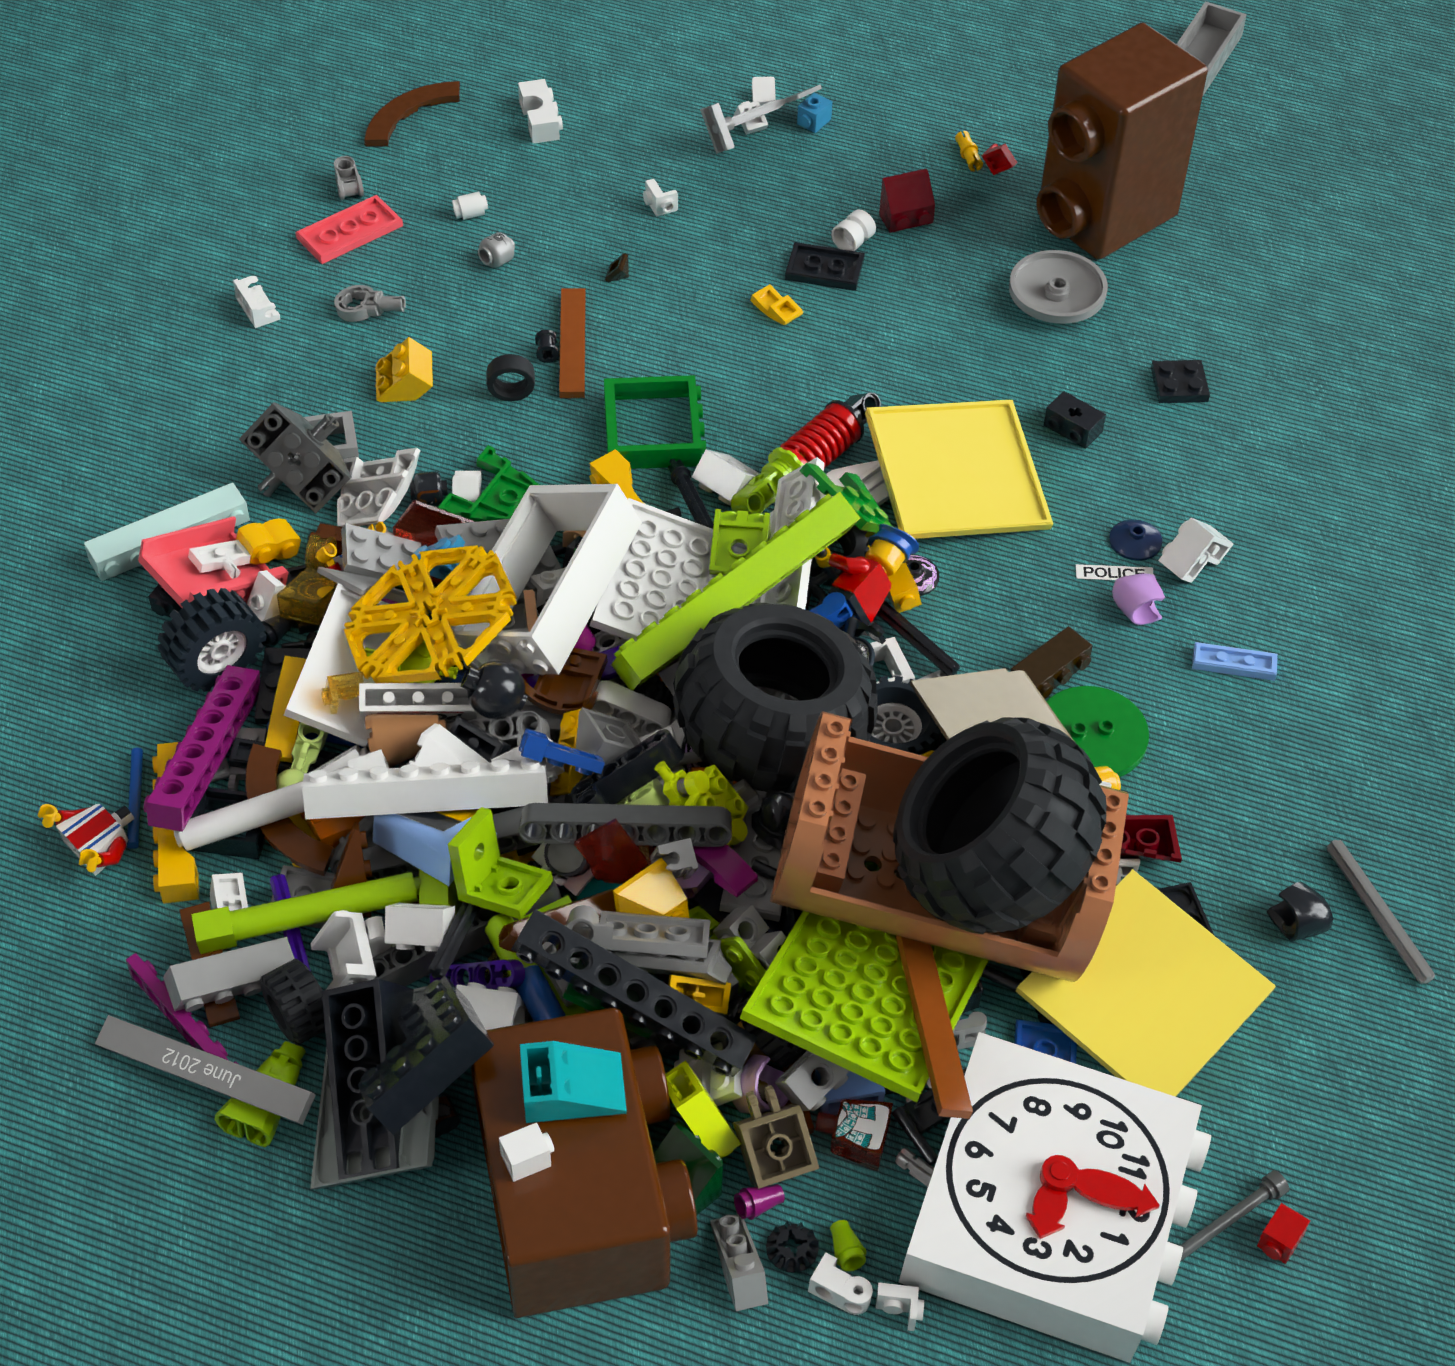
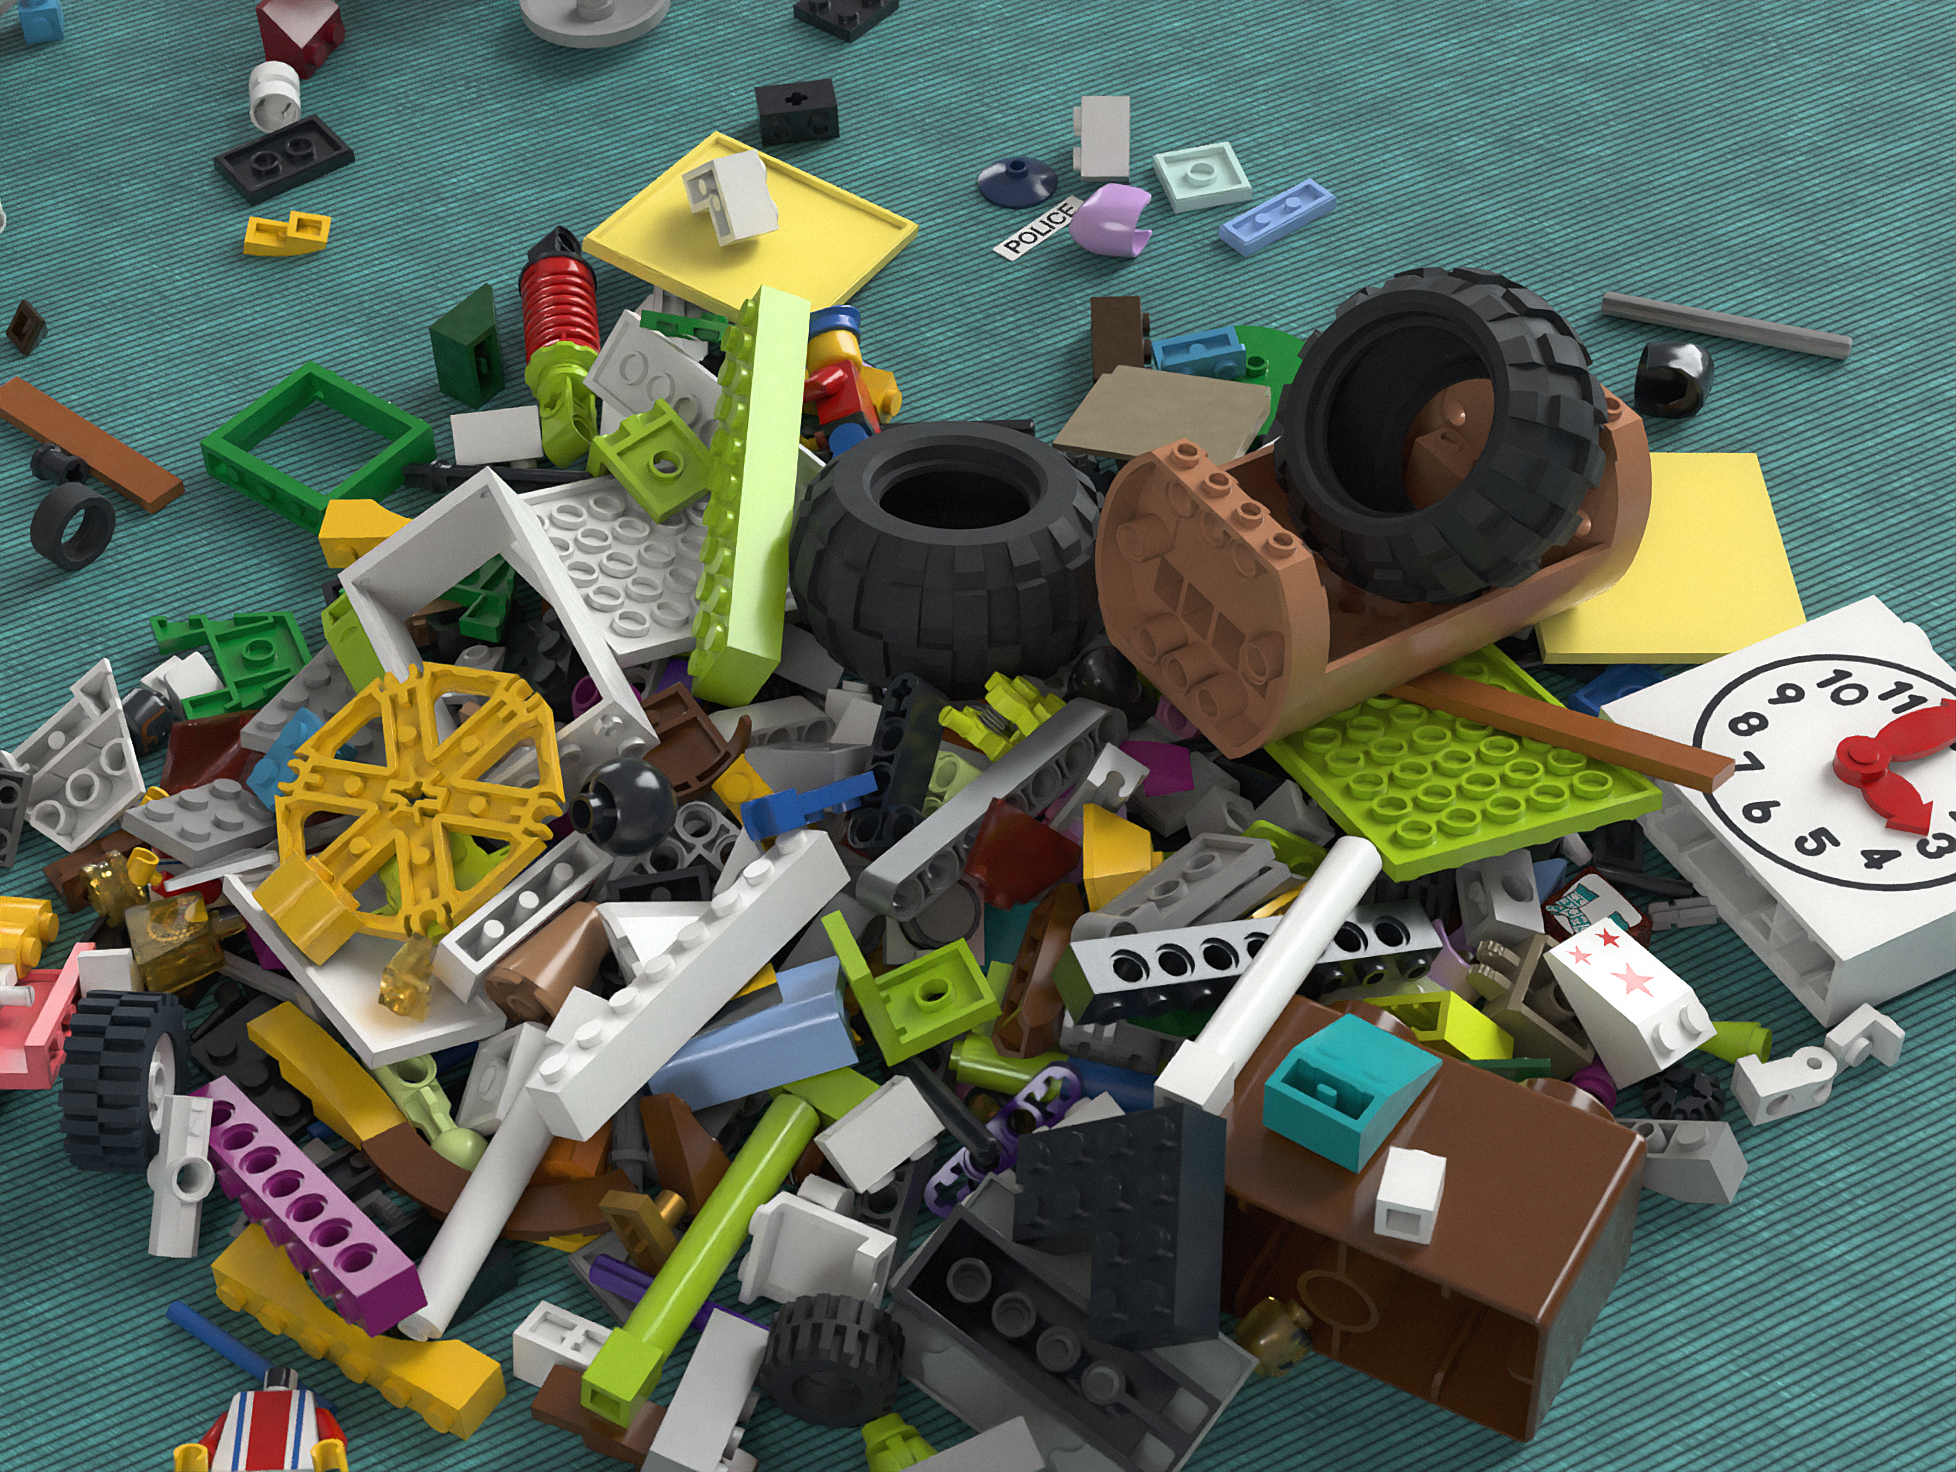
camera: 45 degrees left, 5 degrees down
(197, 685) = (175, 1207): none -> white piece
(301, 881) = (645, 1225): none -> pearl gold tile
(338, 625) = (308, 907): none -> yellow brick
(469, 1167) = (1275, 1336): none -> clear yellow head
(518, 1019) = (1206, 1069): none -> white brick
(768, 423) = (469, 350): none -> dark green slope
(806, 1175) = (1628, 1002): none -> white slope
(957, 441) = (735, 195): none -> white brick
(1075, 700) = (1202, 354): none -> dark azure bracket
(1227, 609) = (1202, 177): none -> light aqua tile

